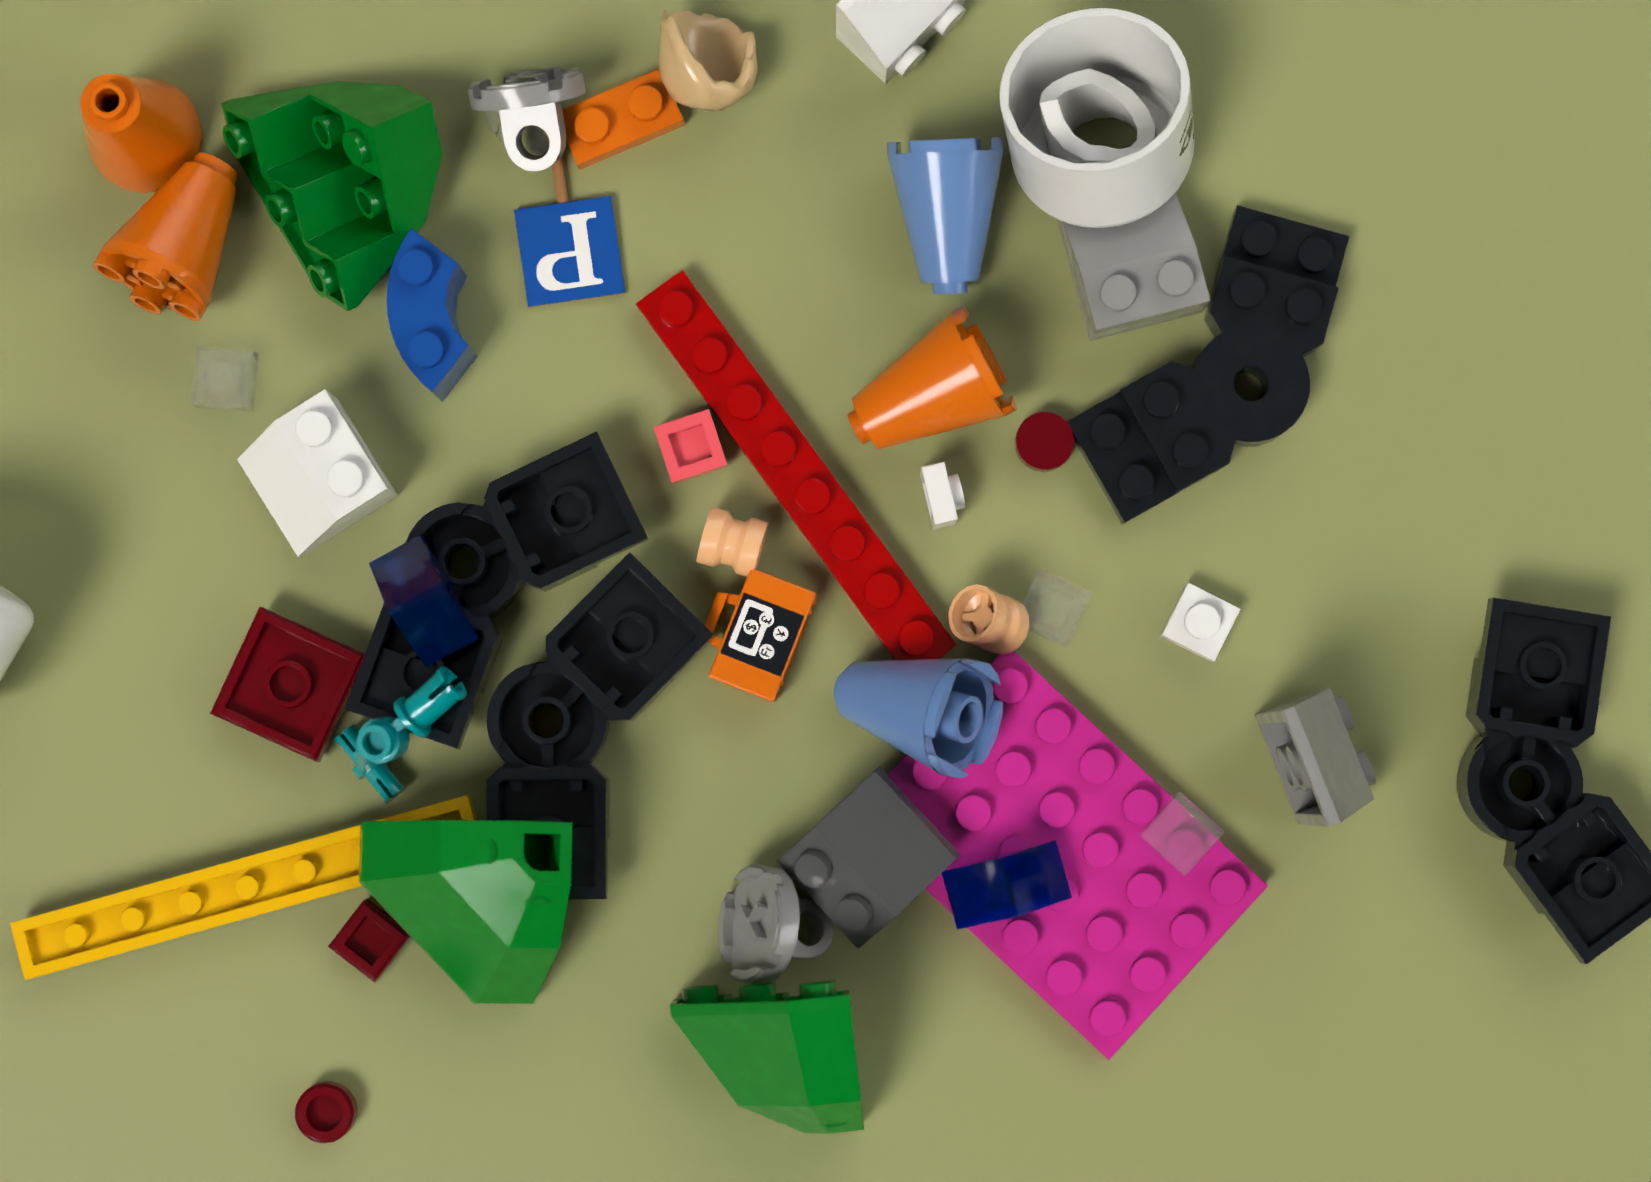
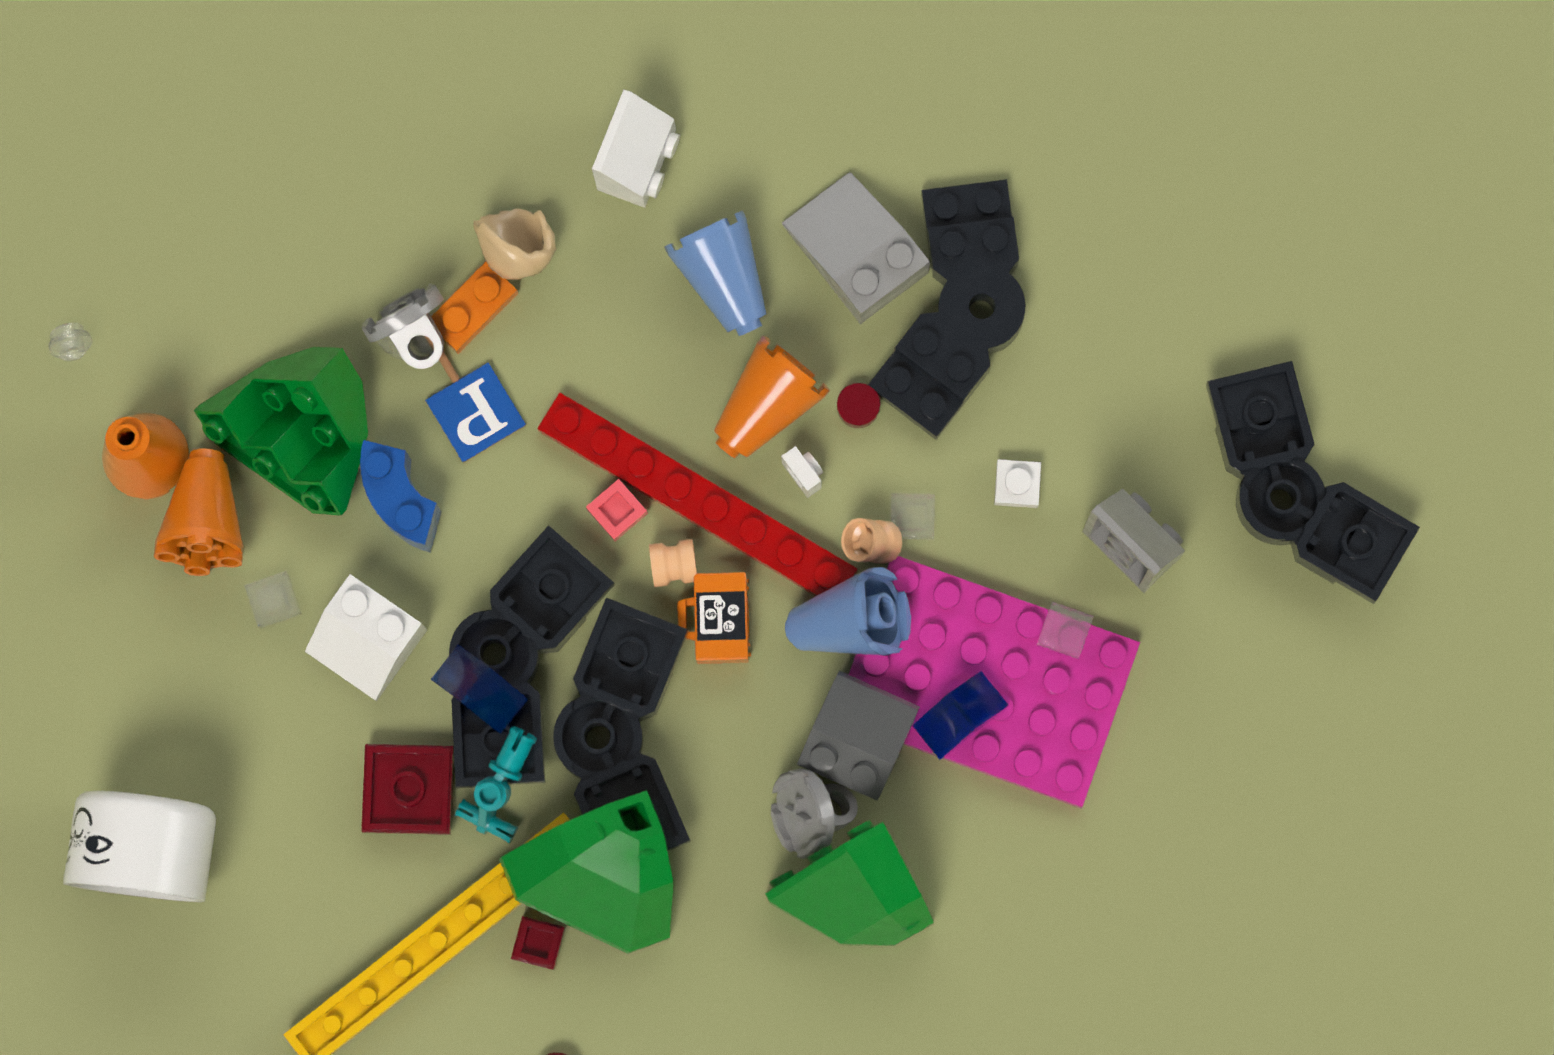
camera: 20 degrees left, 5 degrees down
(1090, 69) = (780, 141): white piece -> none

